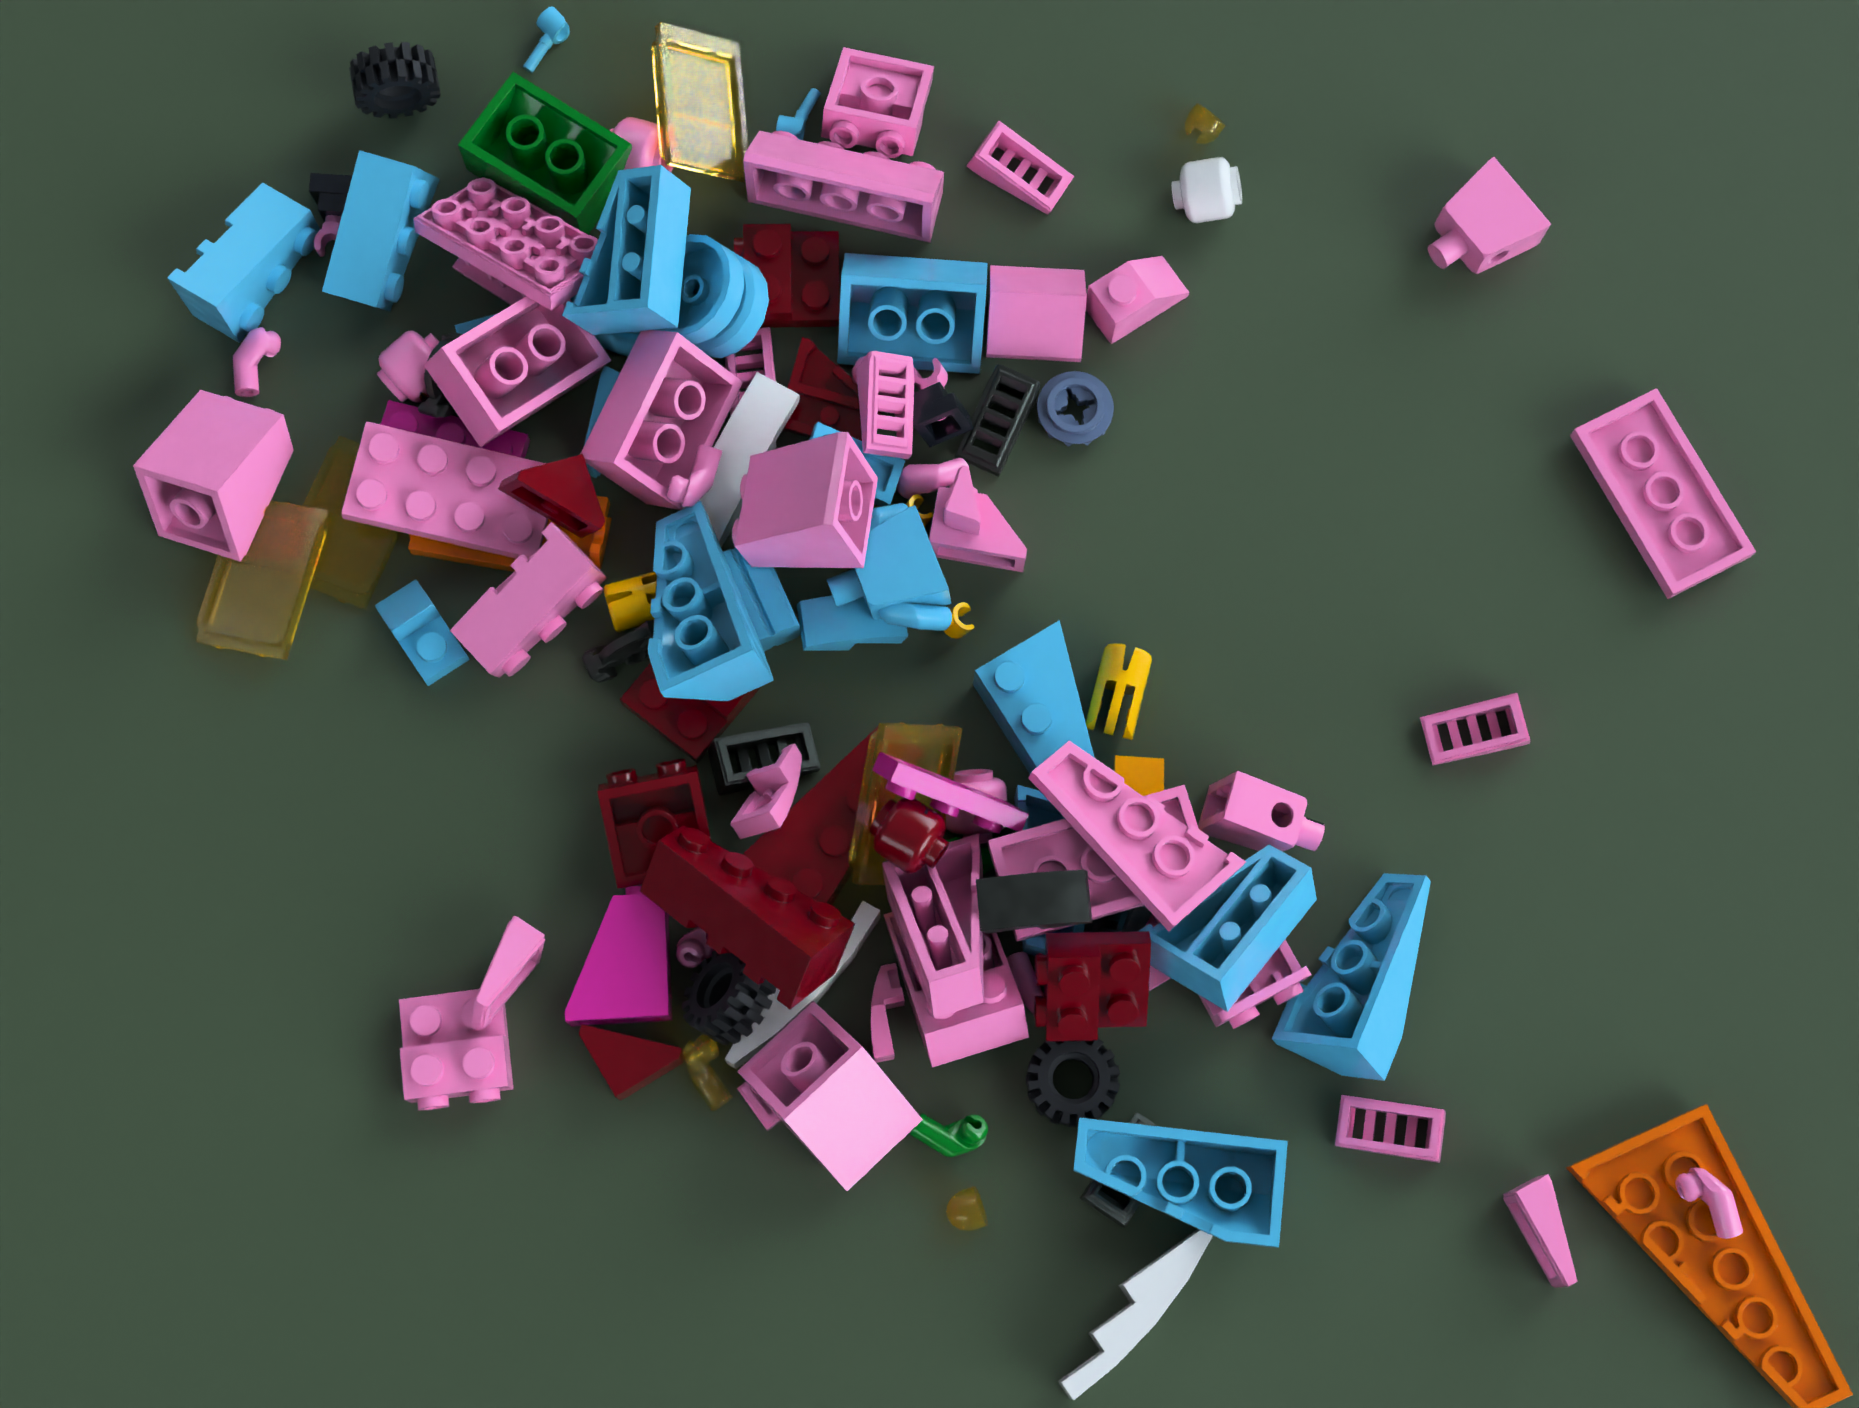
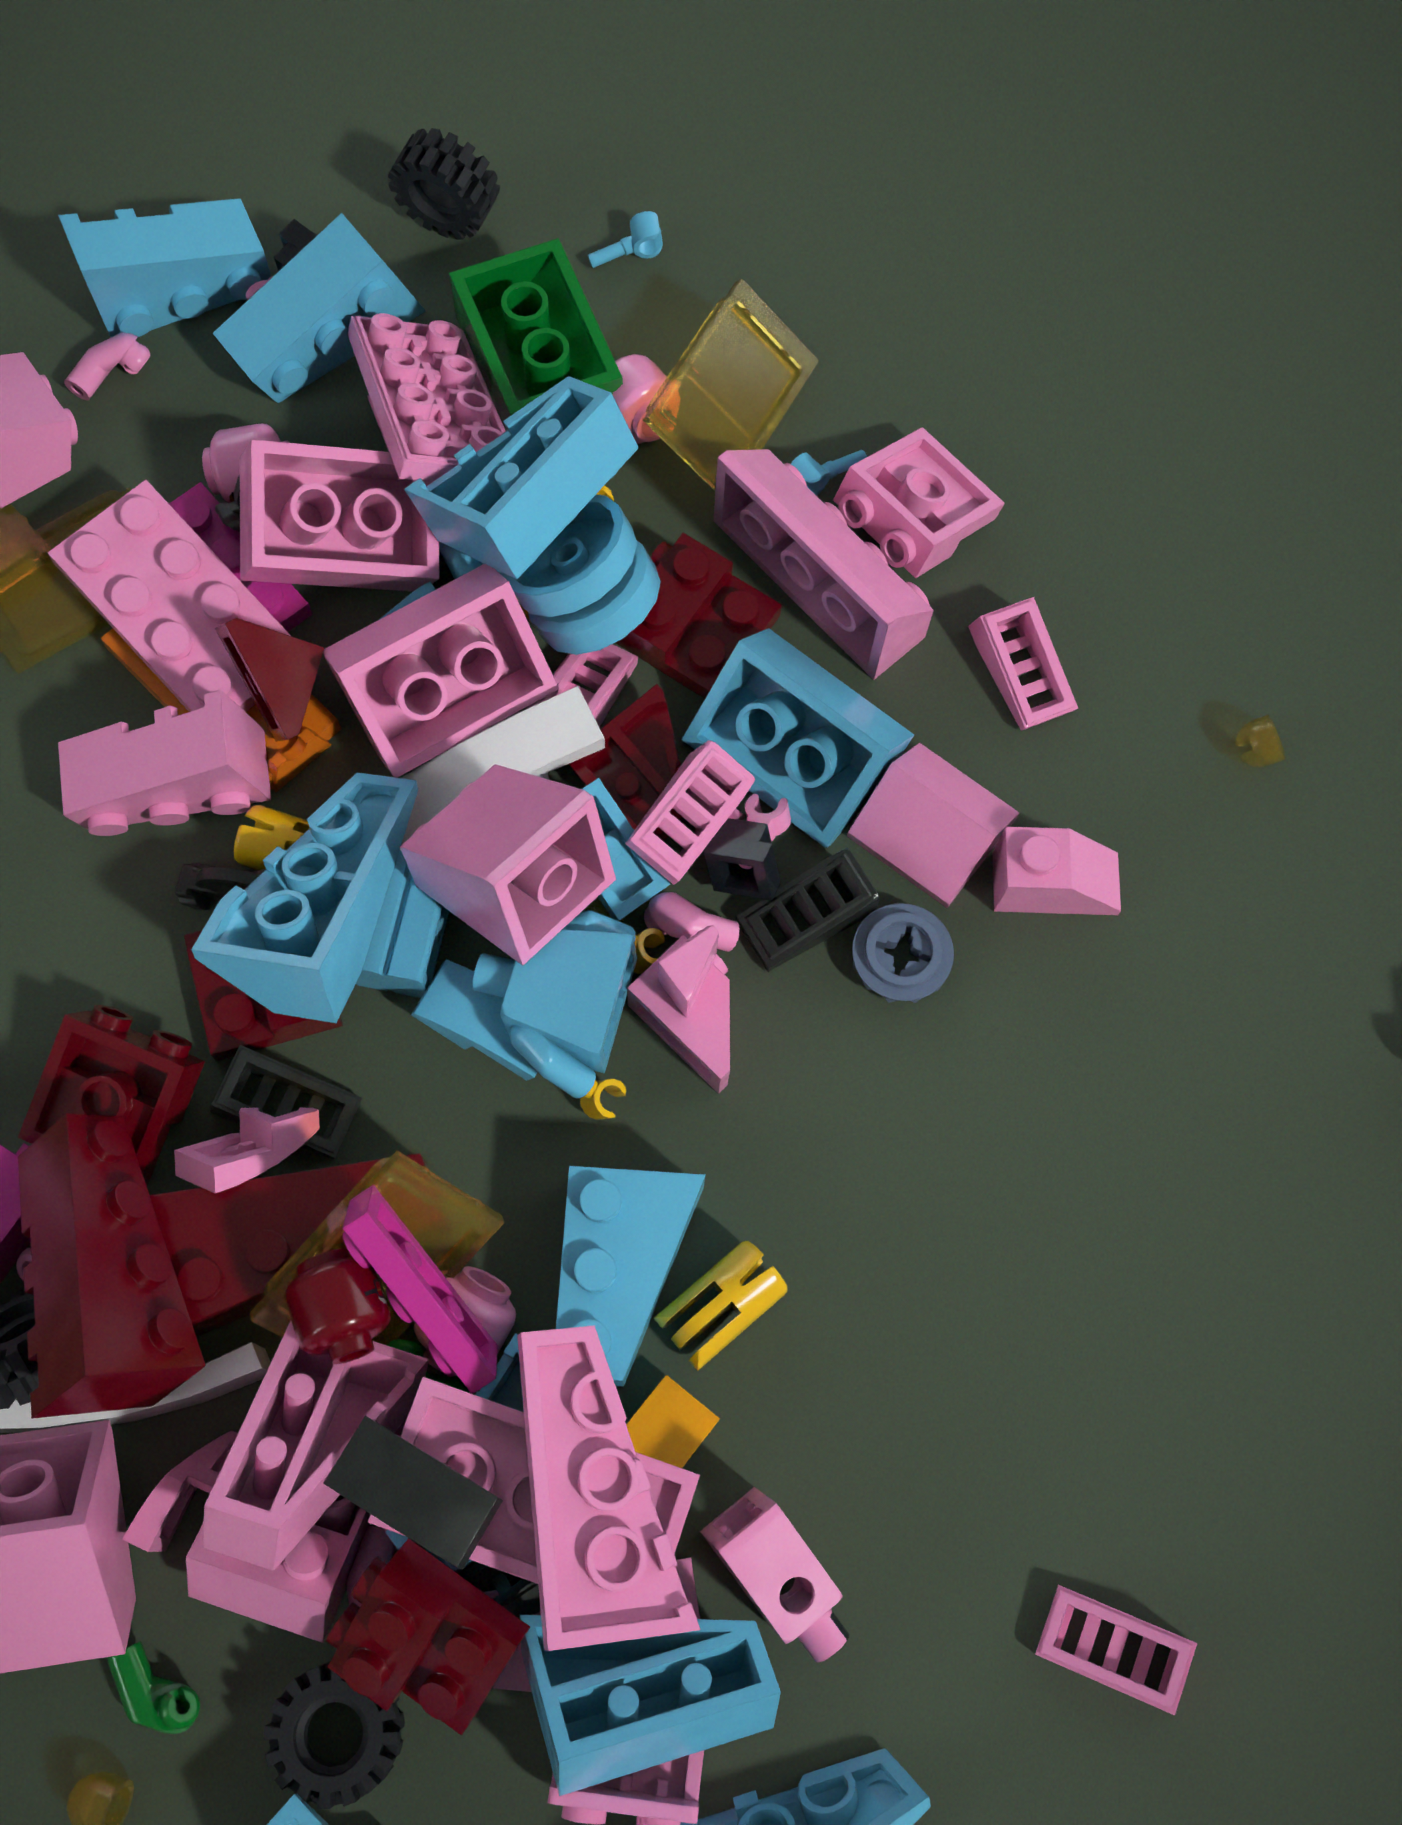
camera: 35 degrees right, 5 degrees down
(422, 632) = (43, 713): medium azure slope -> none
(700, 480) = (427, 760): bright pink arm -> none
(1207, 190) = (1217, 813): white head -> none

